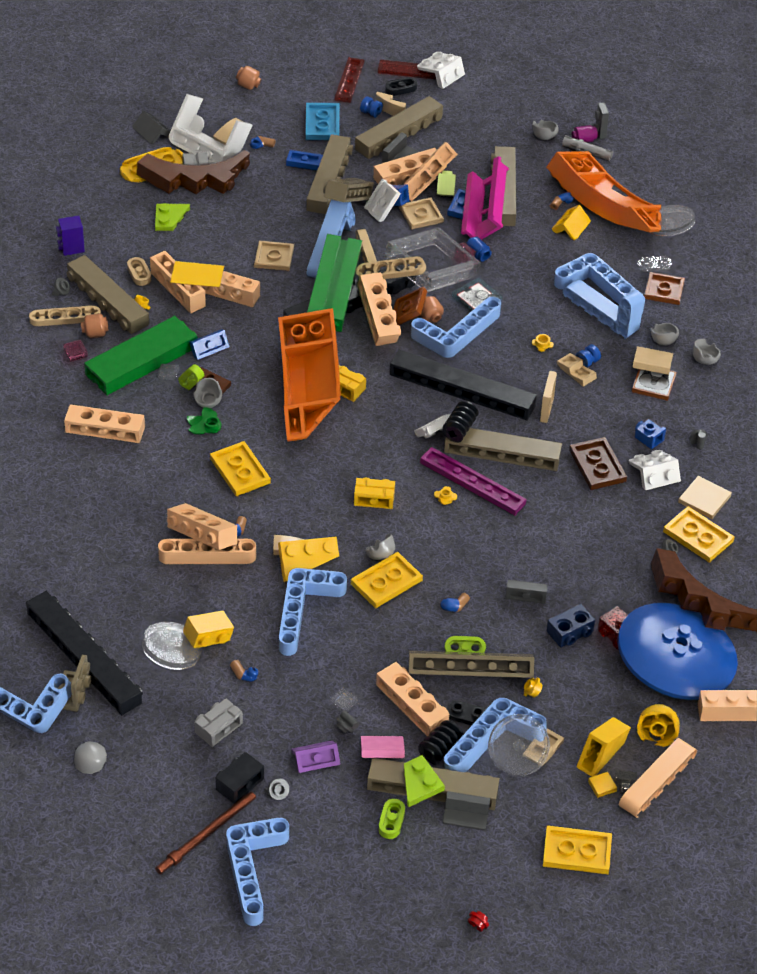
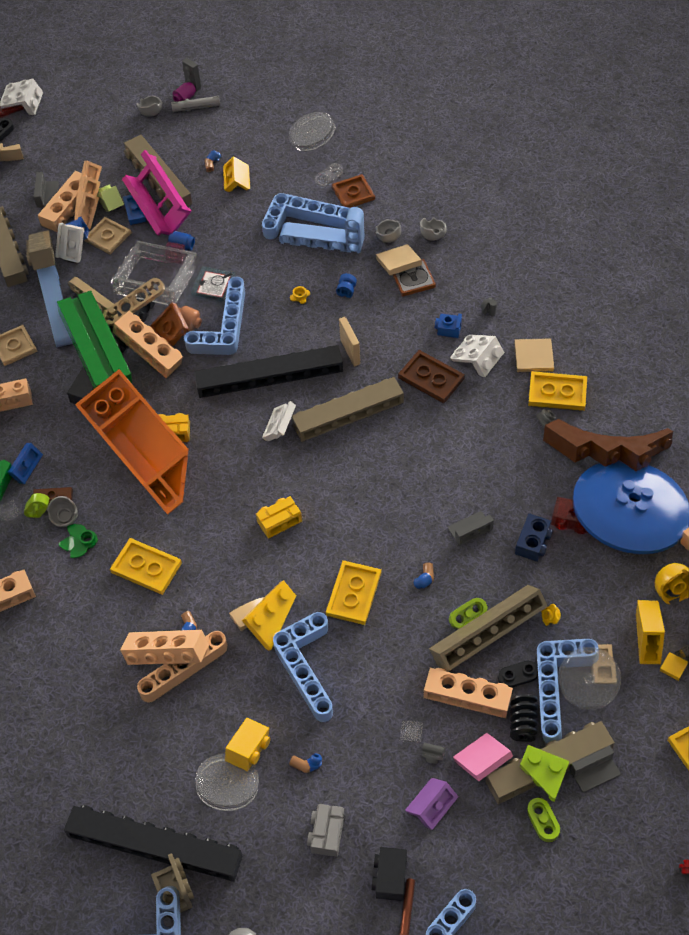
camera: 30 degrees left, 10 degrees up
(277, 789) = (428, 859): plate -> none
(381, 549) = (328, 566): light grey hair -> none
(407, 121) = (24, 174): dark tan brick -> none
(445, 495) = (337, 486): yellow plate -> none
(460, 421) = (303, 408): black piece -> none
(473, 481) = (348, 454): magenta plate -> none
(574, 367) = (340, 301): tan slope -> none
(591, 186) = (224, 134): orange slope -> none

